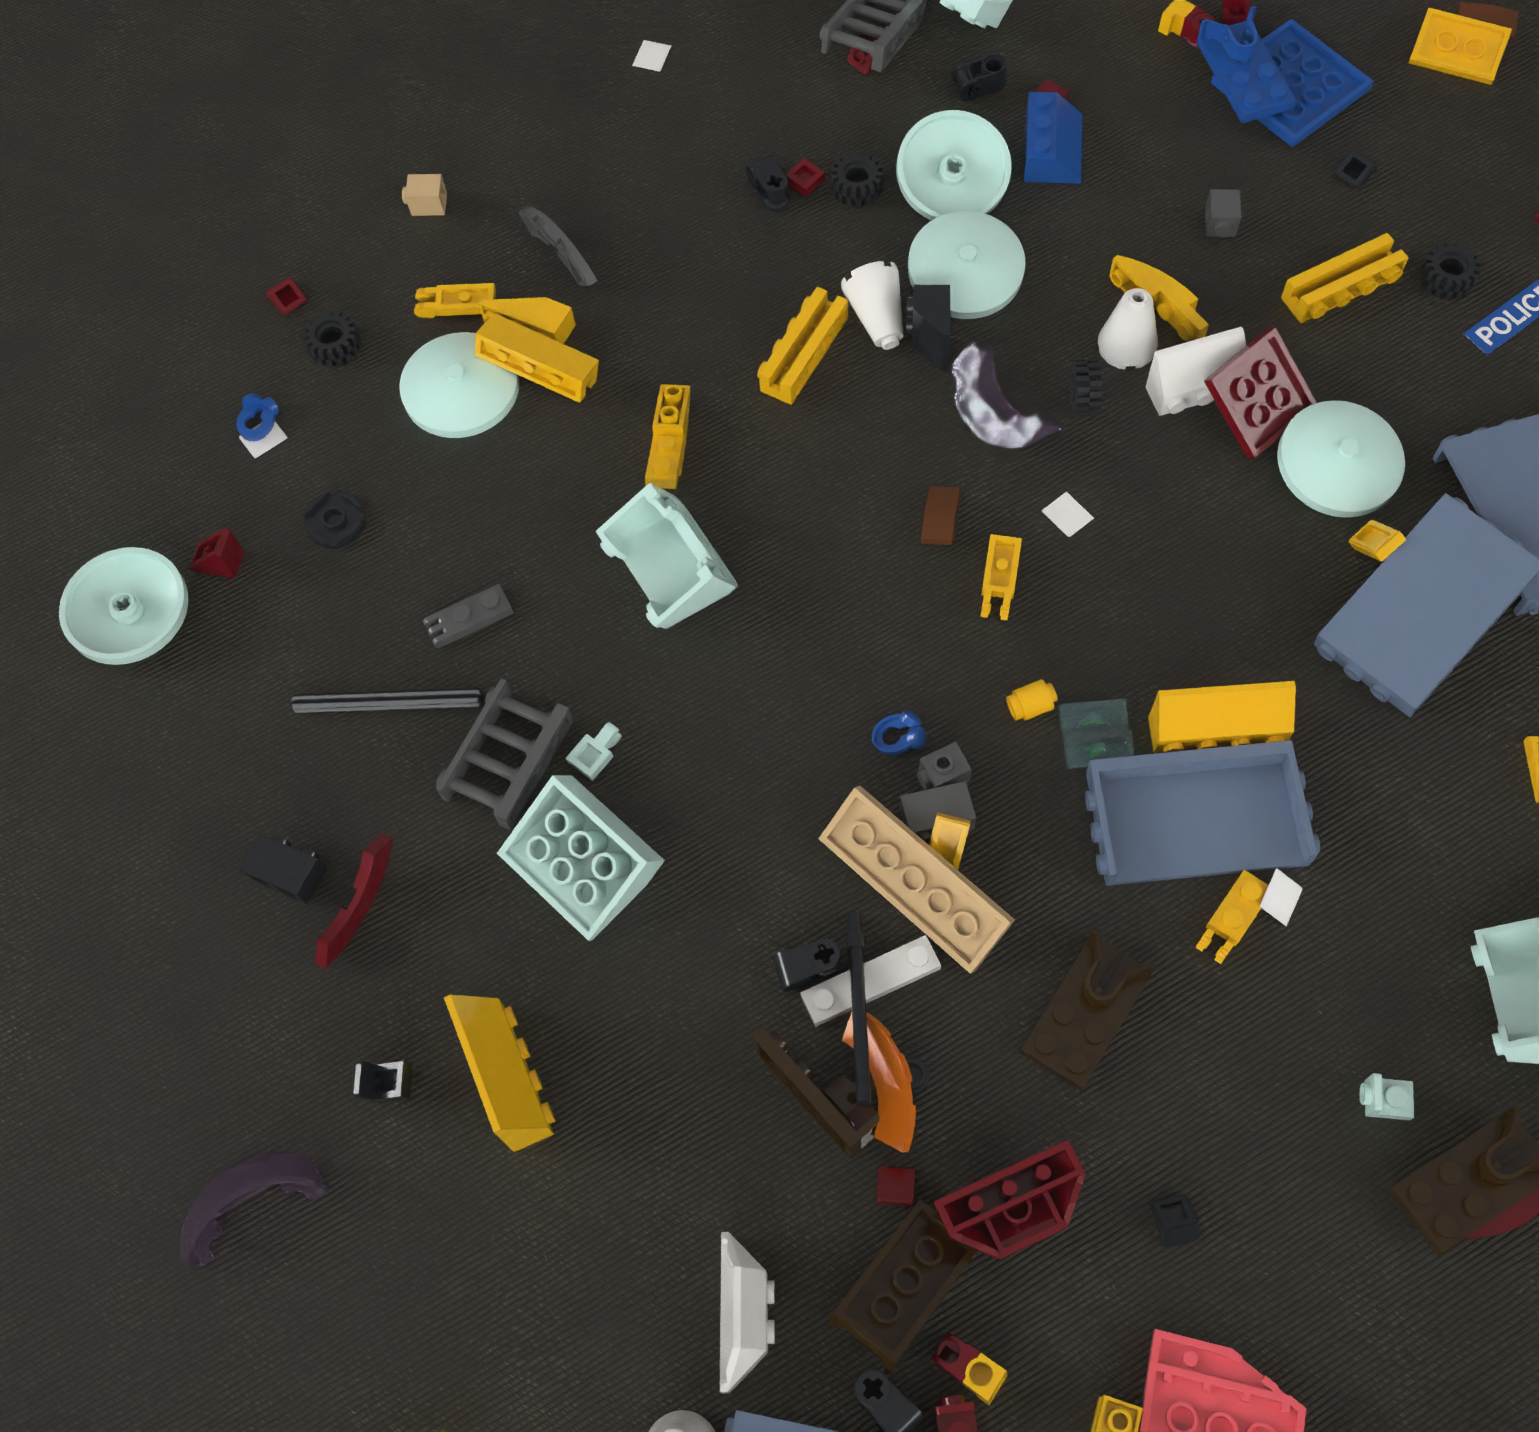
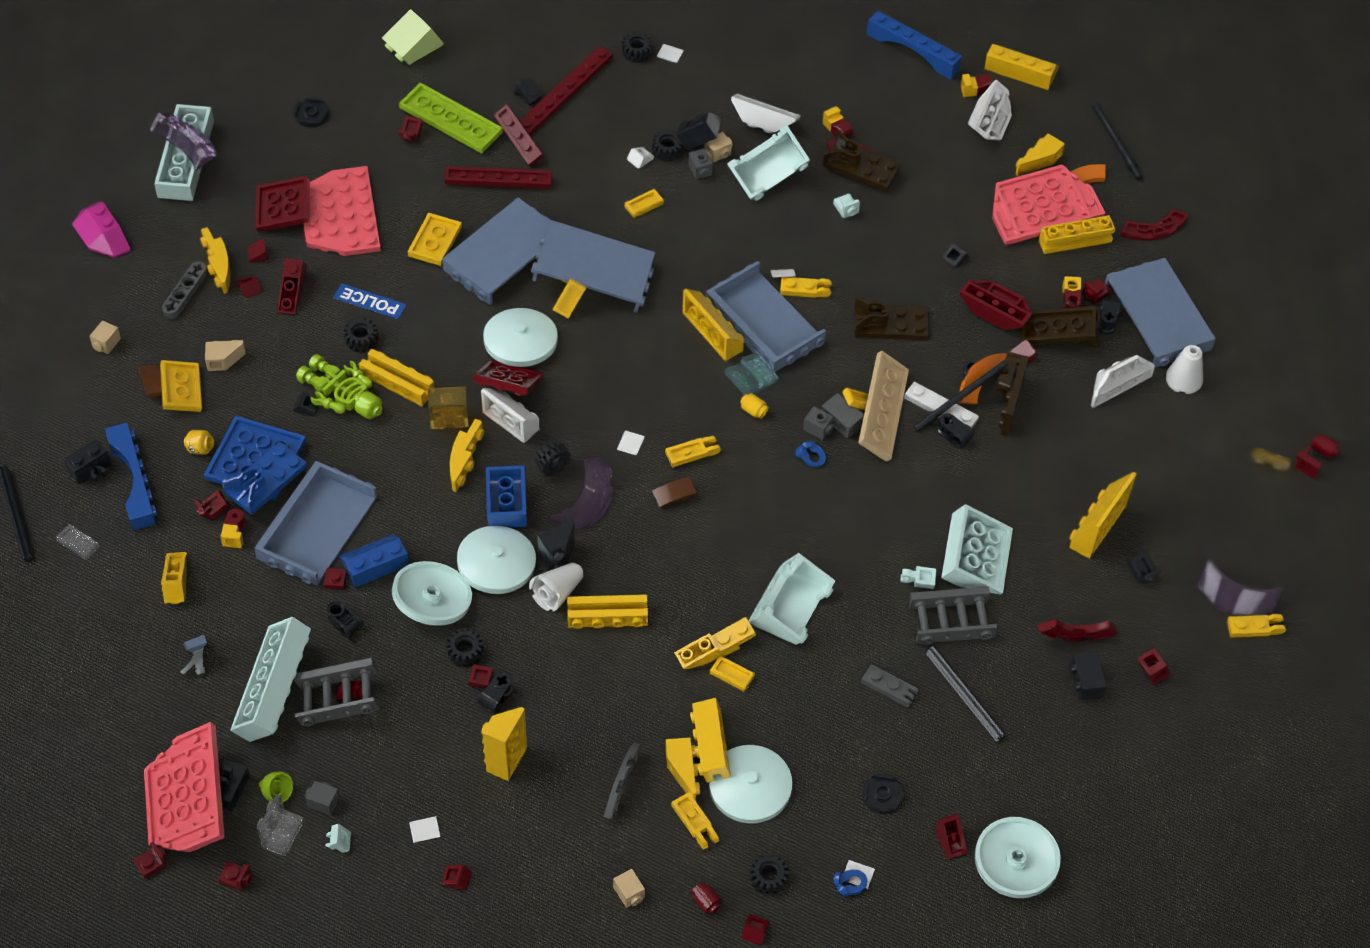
camera: 130 degrees left, 10 degrees down
(180, 1189) = (1255, 625): none -> yellow hinge
(230, 974) = (1153, 666): none -> dark red brick
(353, 261) = (706, 898): none -> dark red brick
(569, 57) = (456, 877): none -> dark red slope
(620, 444) = (732, 673): none -> yellow tile
(670, 119) = (504, 742): none -> yellow slope
(1052, 306) = (506, 496): none -> blue brick
(1130, 331) = (499, 451): white cone -> none
(1146, 104) = (316, 523): none -> sand blue panel
(1223, 213) = (385, 447): dark grey brick -> none
(1247, 297) = (448, 407): none -> clear yellow brick
(1341, 207) = (352, 390): none -> lime piece
(1350, 32) = (199, 442): none -> yellow head
(1492, 103) = (223, 354): none -> tan slope

